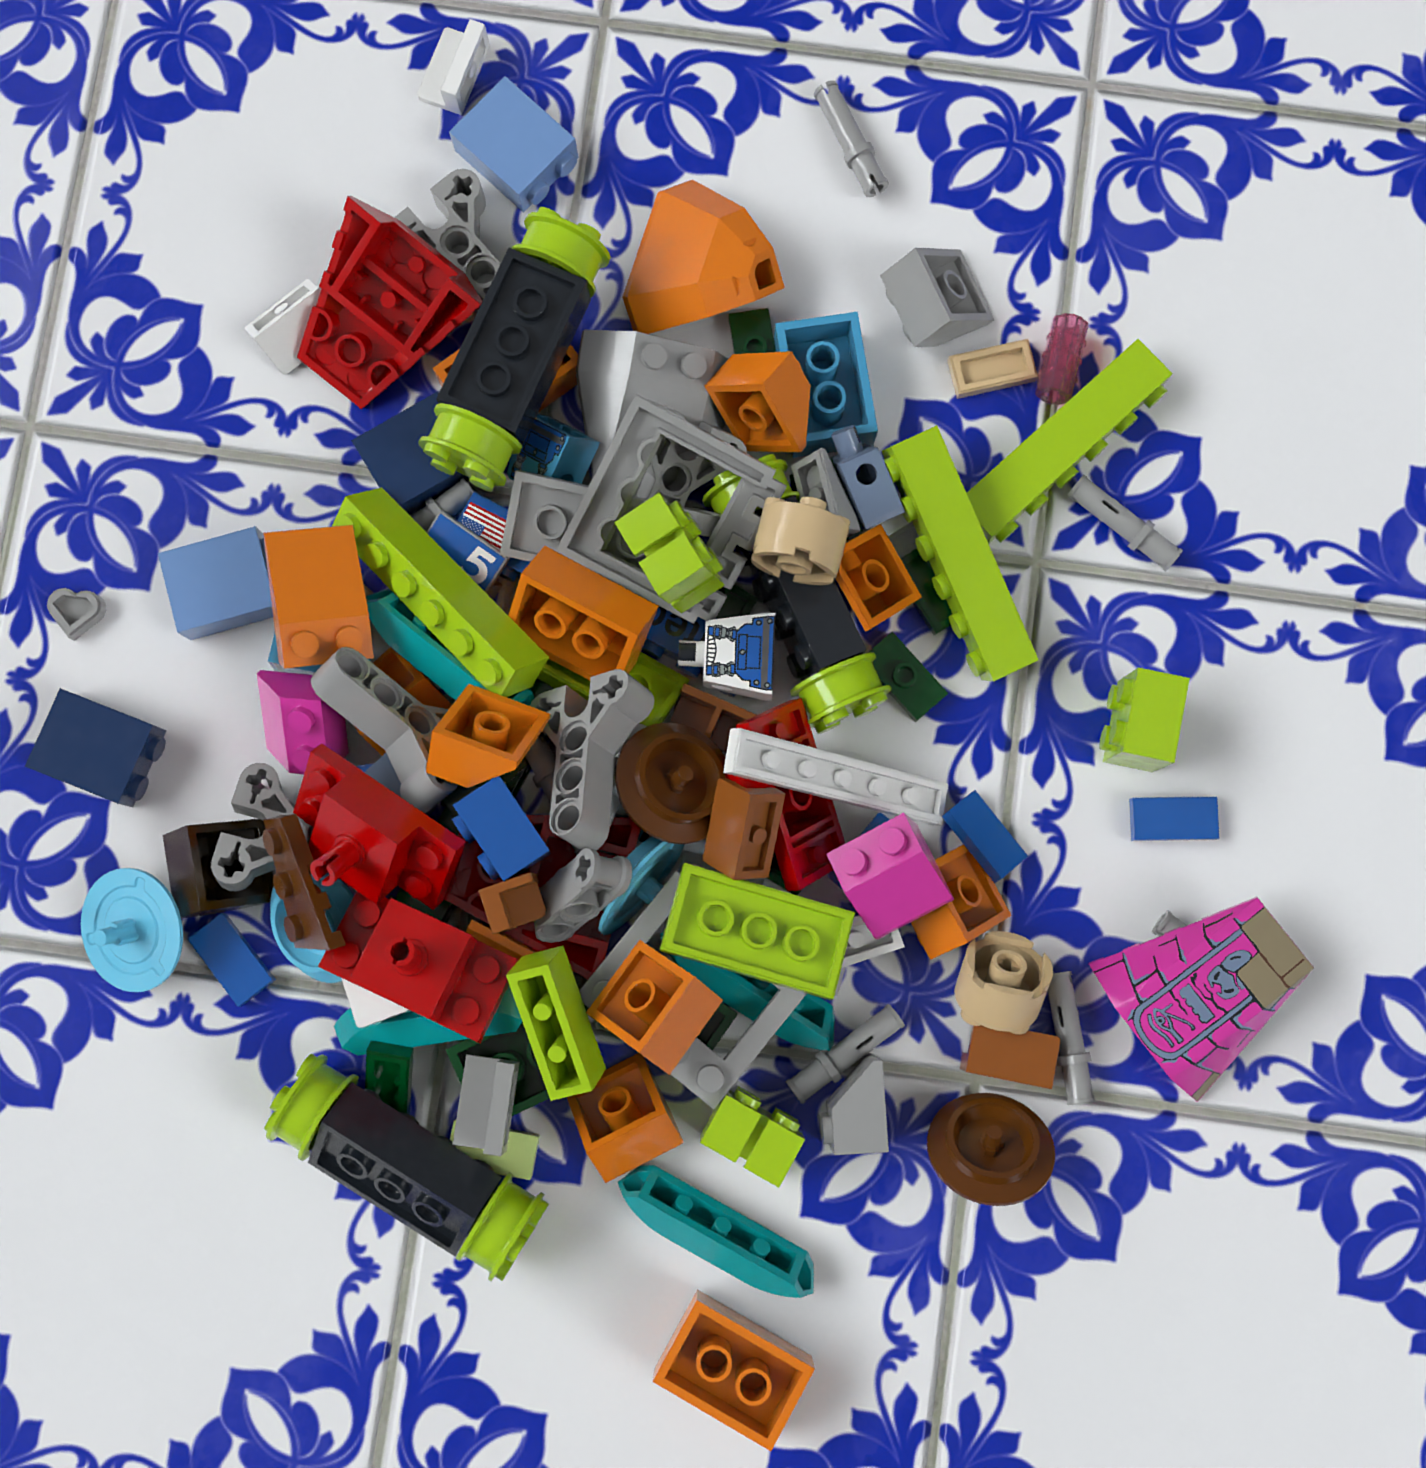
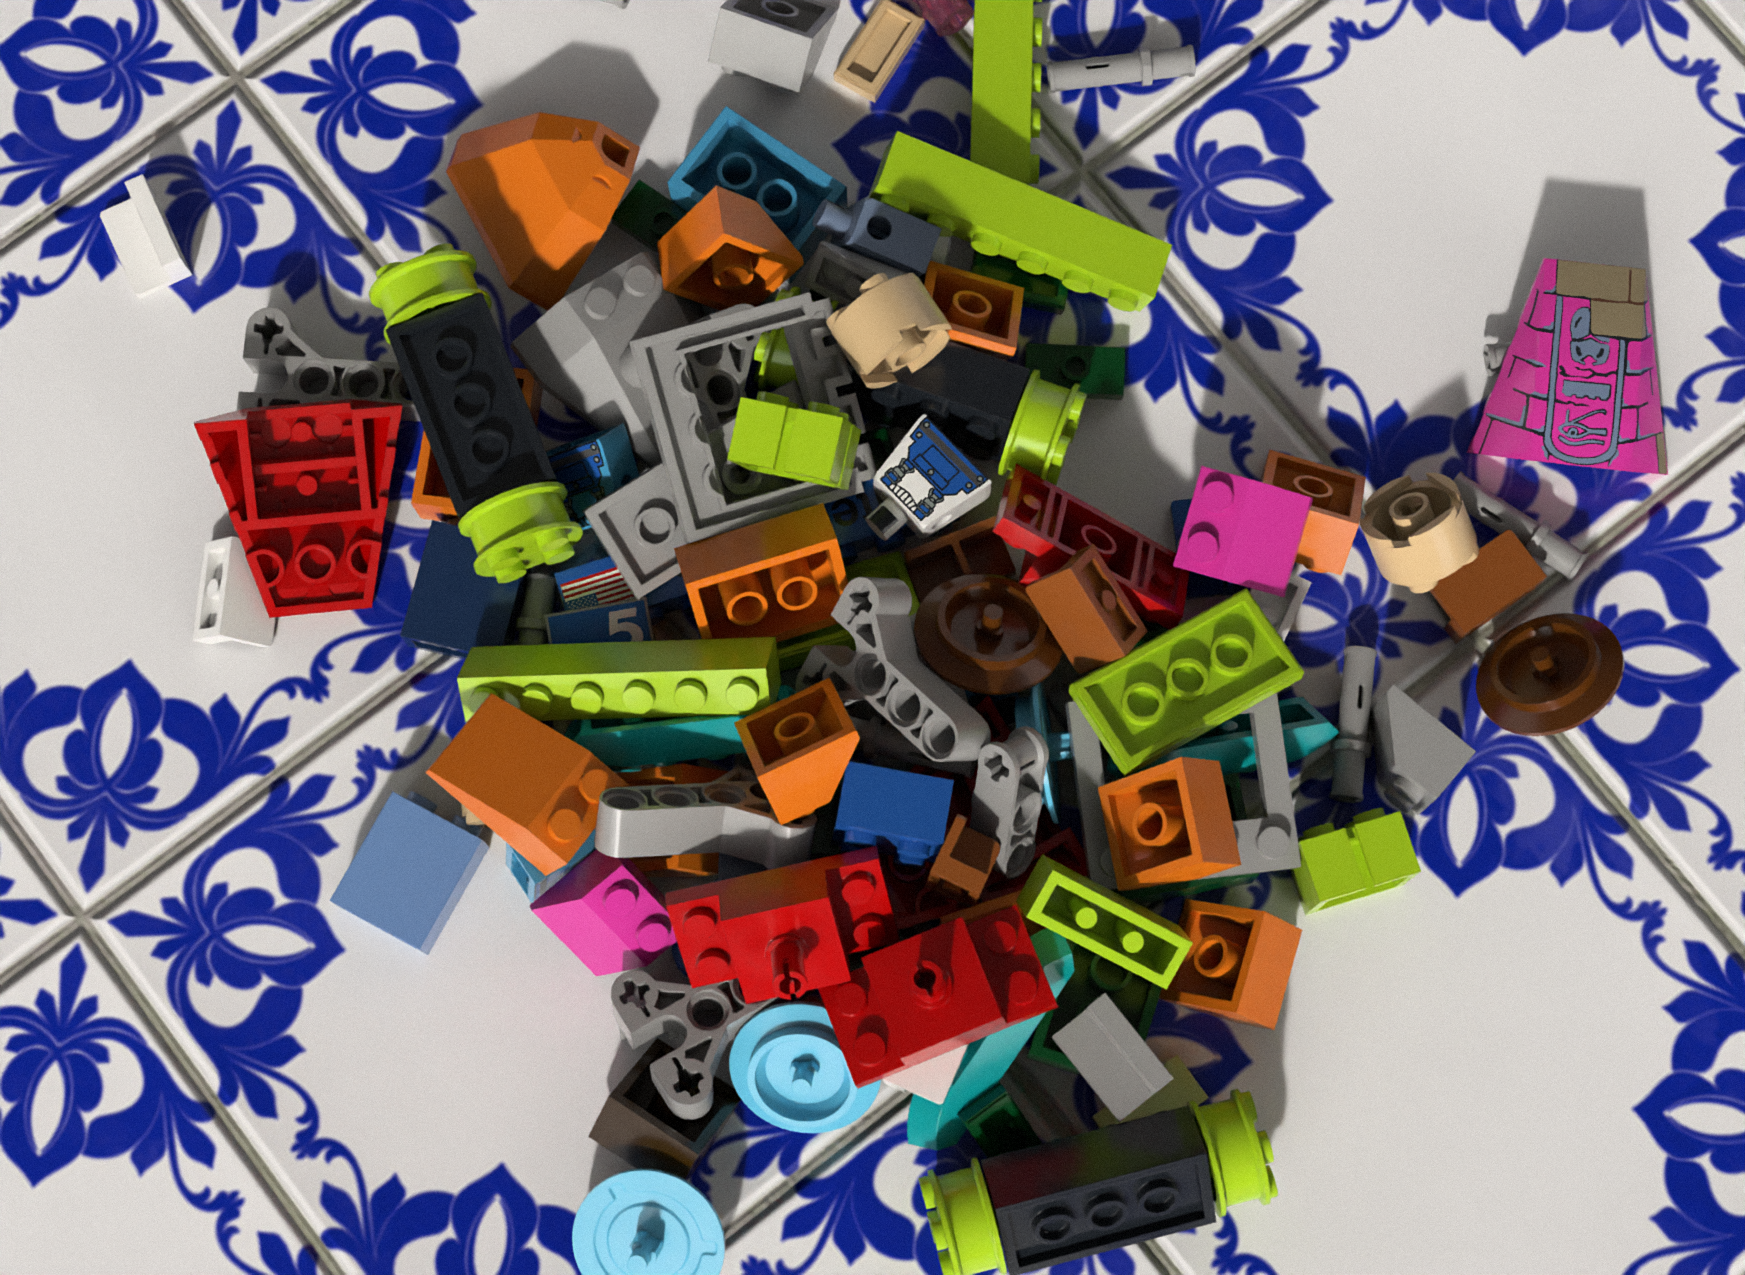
camera: 45 degrees left, 5 degrees down
(75, 611) = (299, 1032): light grey tile -> none
(97, 748) = (449, 1124): dark blue brick -> none
(231, 959) = (758, 1183): blue tile -> none
(303, 899) = (780, 1043): reddish brown wing -> none
(515, 144) = (274, 252): medium blue brick -> none
(718, 1233) = (1405, 975): teal brick -> none
(734, 1370) = (1538, 1068): orange brick -> none
(834, 776) = (1112, 498): white tile -> none
(984, 836) = (1277, 433): blue tile -> none
(1144, 720) = (1307, 208): lime brick -> none
(1174, 818) = (1411, 267): blue tile -> none

